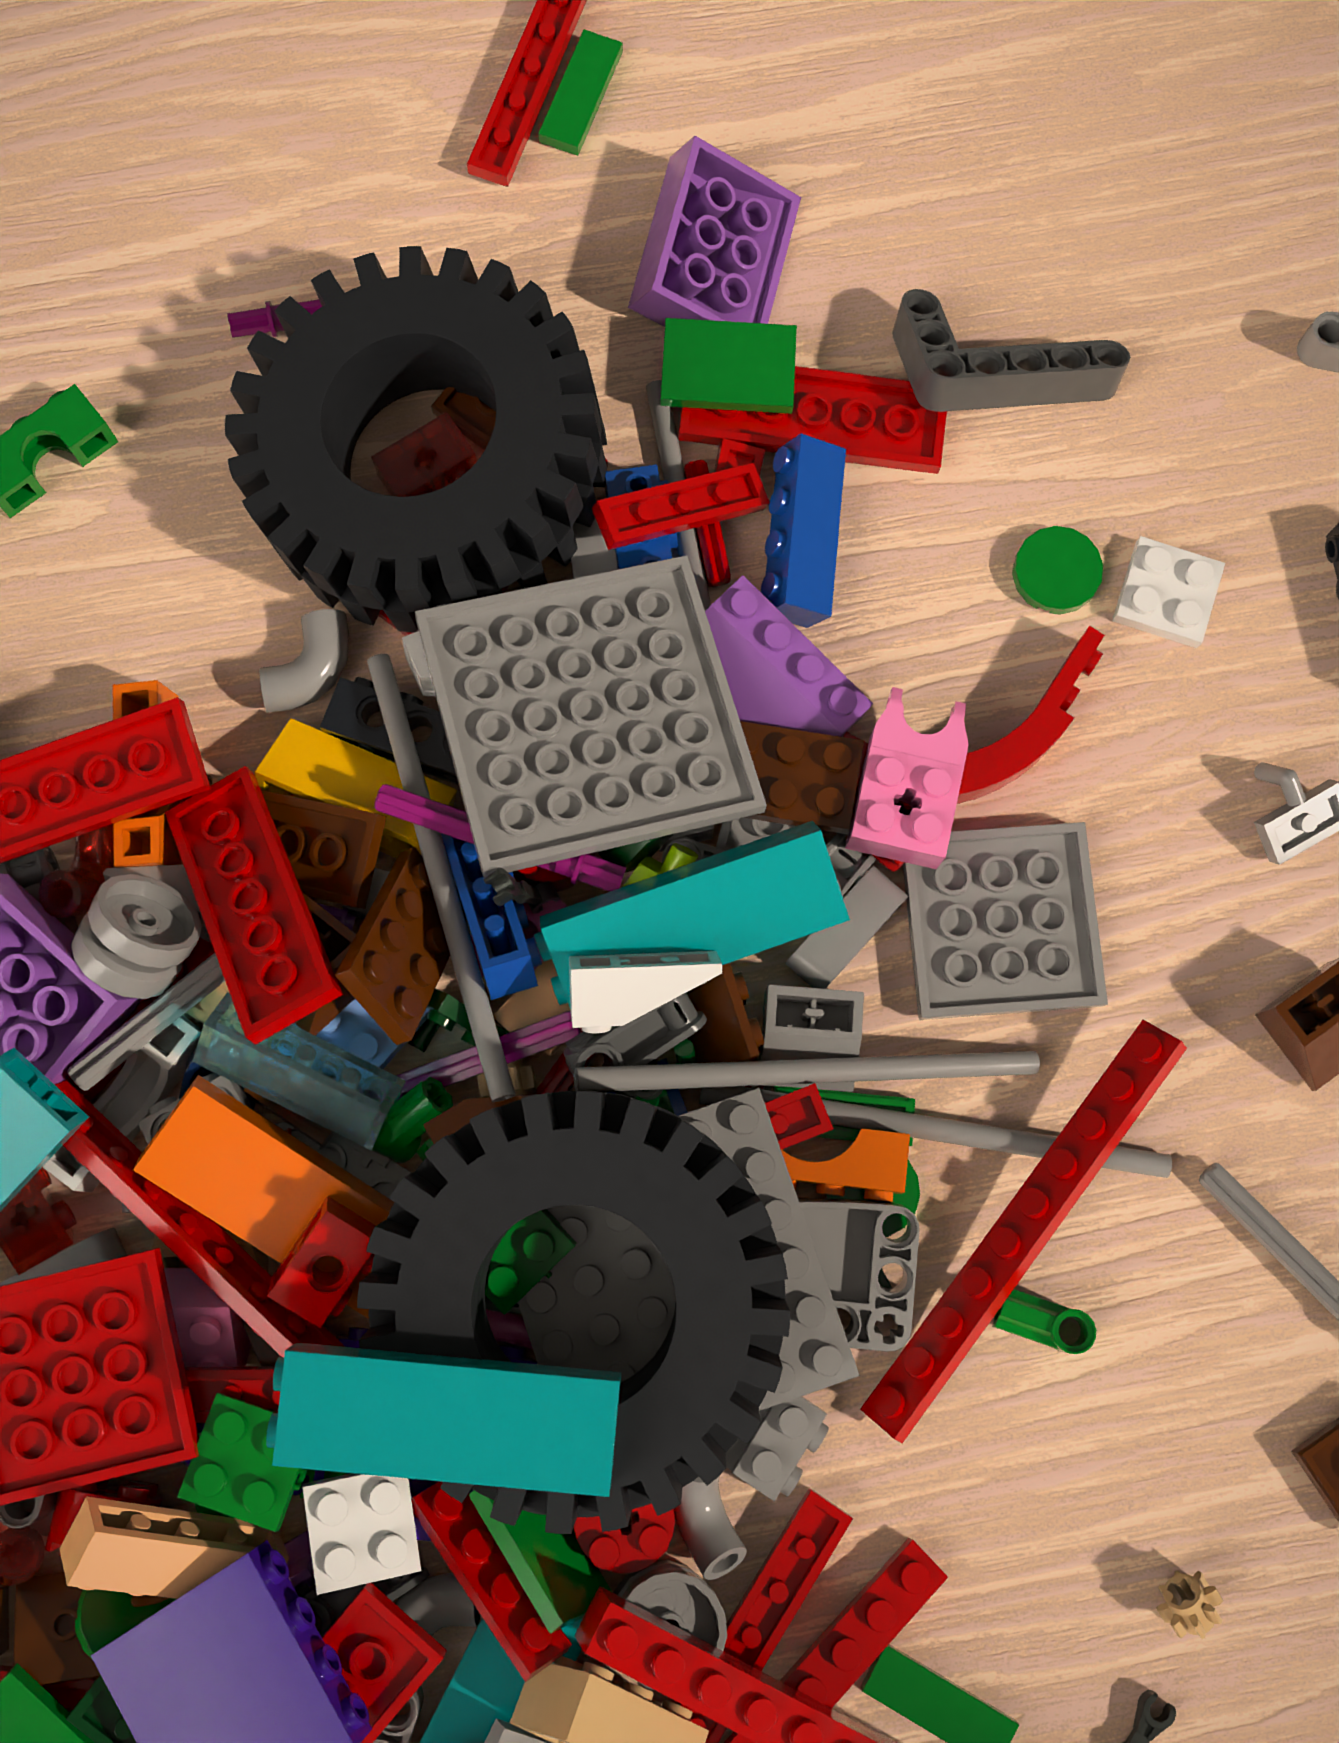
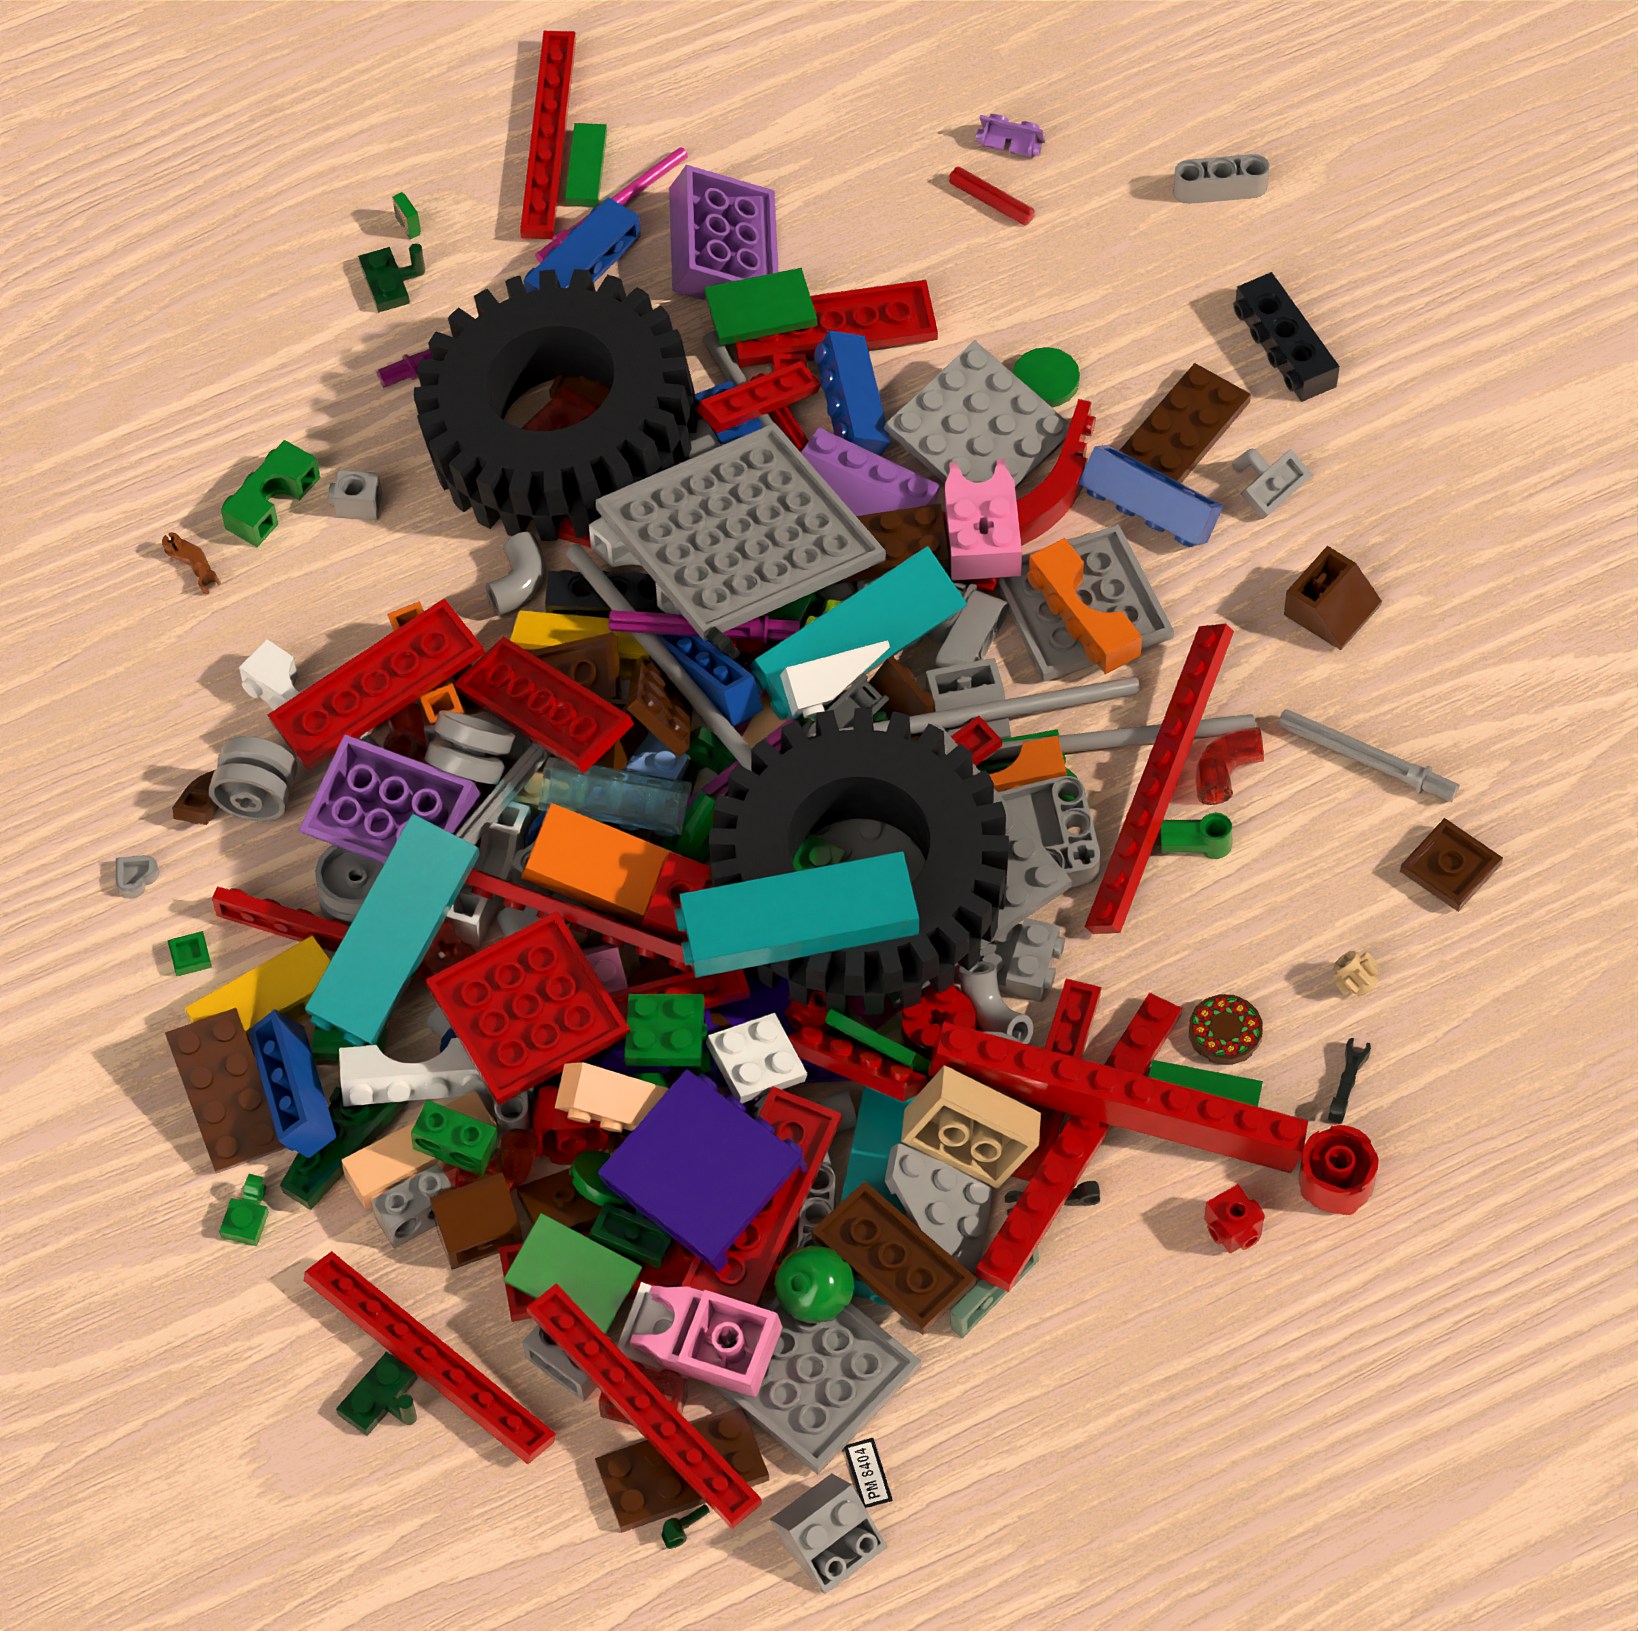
camera: 10 degrees left, 20 degrees down
(155, 500) = (356, 495): none -> light grey brick
(286, 181) = (385, 278): none -> dark green plate
(336, 100) = (406, 215): none -> green tile
(520, 191) = (625, 194): none -> dark pink bar
(539, 218) = (591, 245): none -> blue brick
(950, 623) = (978, 416): none -> light grey plate
(995, 1622) = (1225, 1029): none -> tile
(999, 375) = (958, 261): dark grey beam -> none
(1016, 999) = (1106, 636): none -> orange arch
(1068, 285) = (991, 196): none -> red axle
(1107, 195) = (1023, 135): none -> medium lavender hinge
(1112, 1214) = (1221, 758): none -> clear red cylinder
(1139, 794) = (1150, 495): none -> brick
(1168, 592) = (1131, 370): white plate -> none
(1210, 695) = (1187, 423): none -> reddish brown plate

